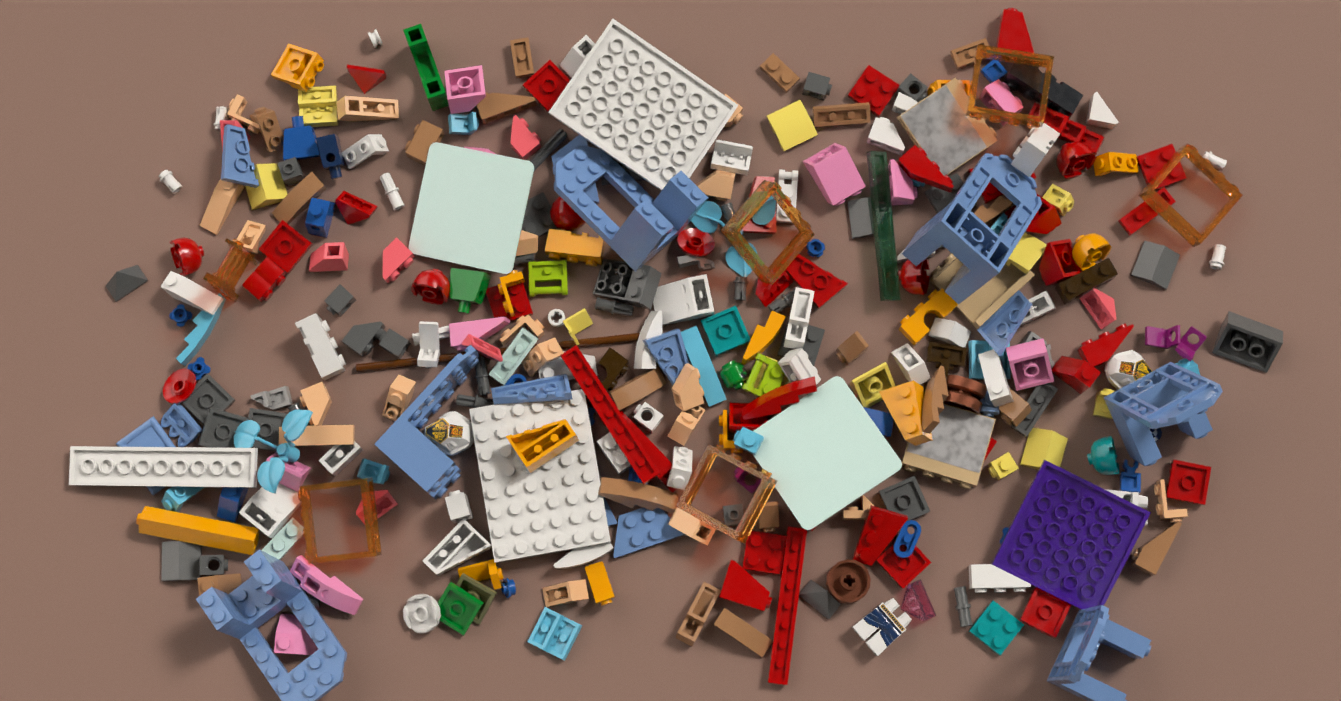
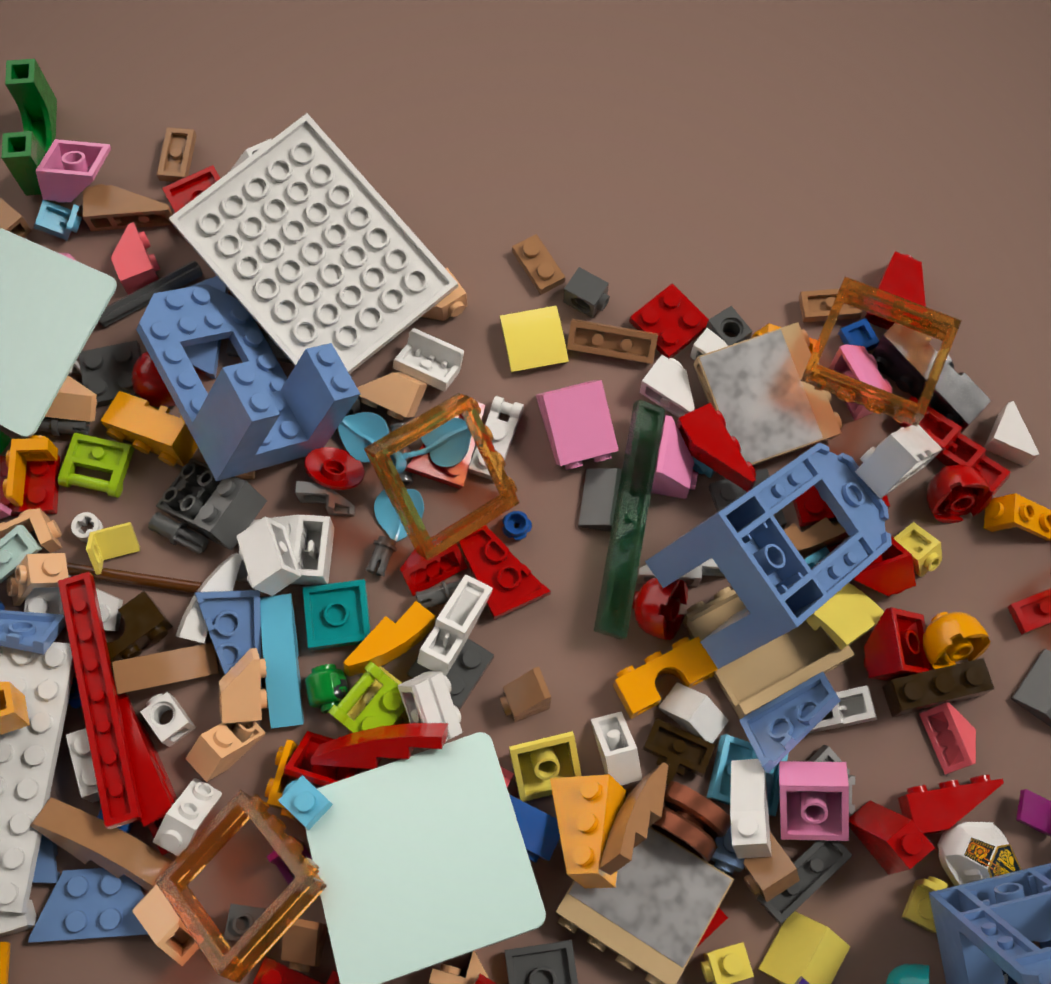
camera: 15 degrees right, 10 degrees down
(679, 308) = (268, 556): none -> white brick

